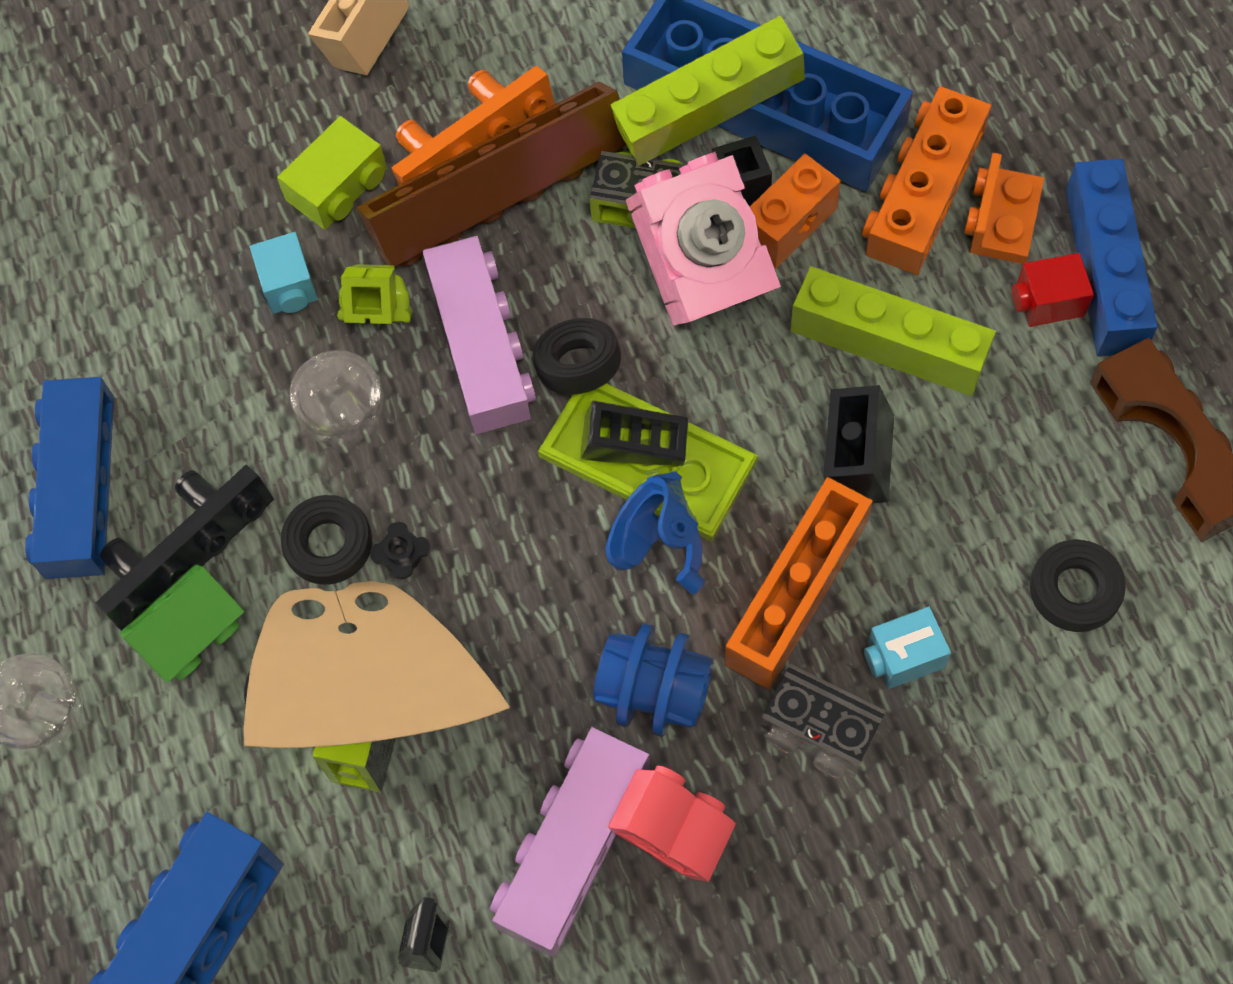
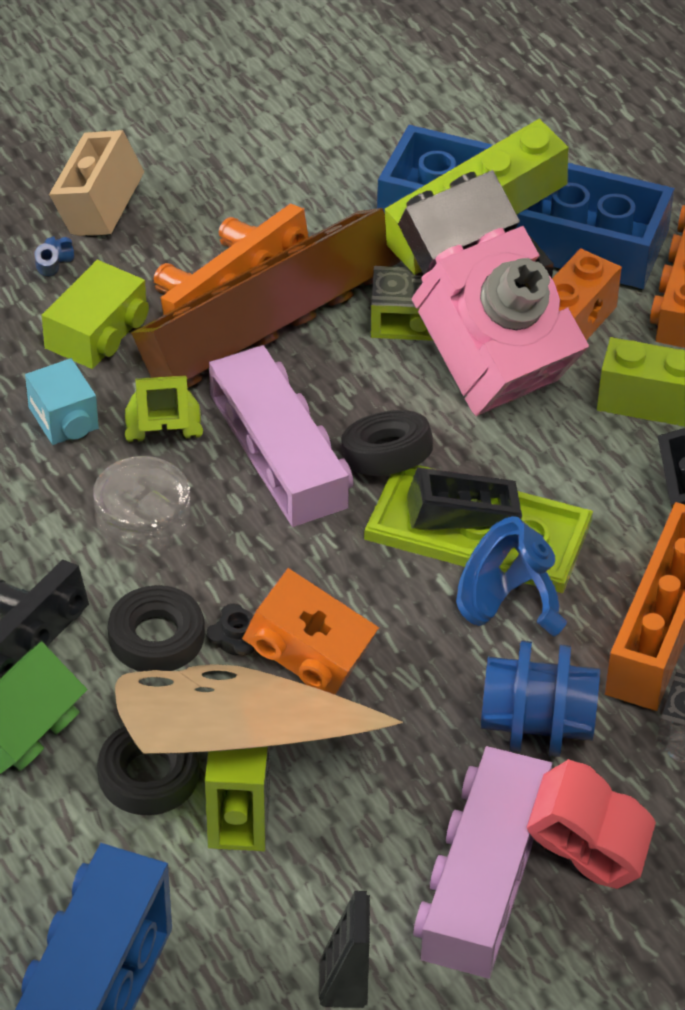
camera: 15 degrees left, 20 degrees down
(304, 99) = (51, 253): none -> blue arm
(443, 550) = (309, 633): none -> orange brick
(674, 133) = (455, 216): none -> brick

